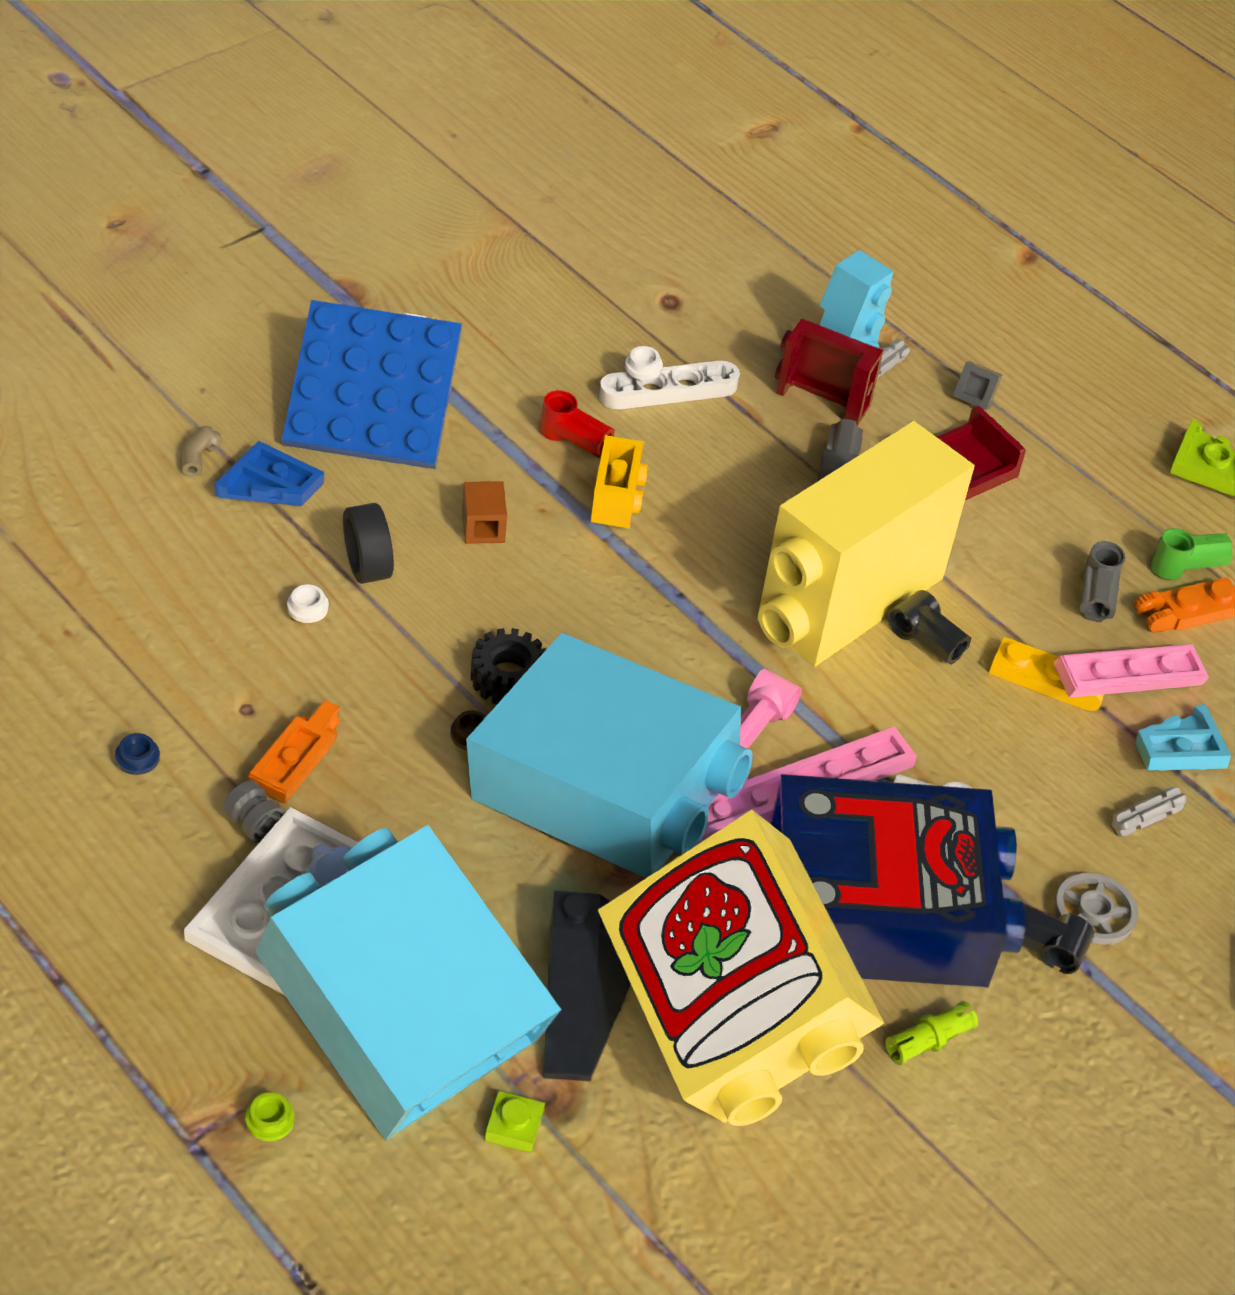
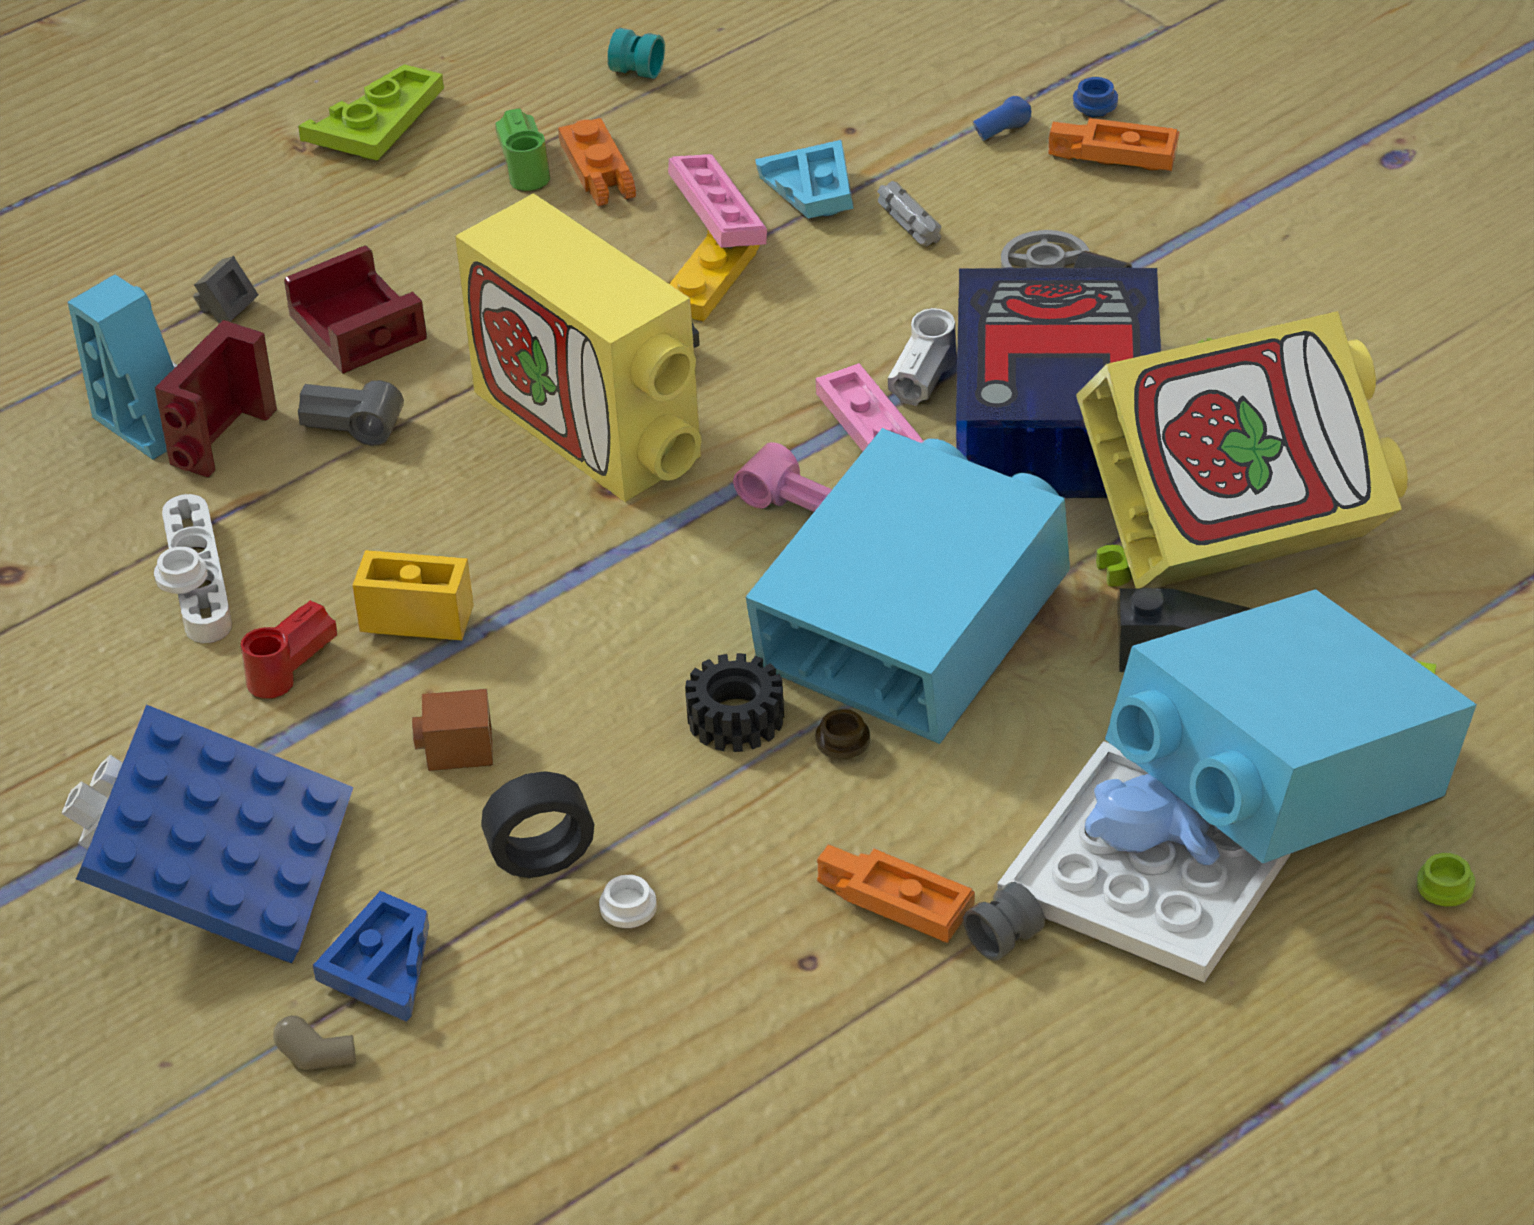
camera: 80 degrees left, 5 degrees down
(137, 754) = (912, 1052): dark blue plate -> none
(1101, 581) = (596, 215): dark grey piece -> none

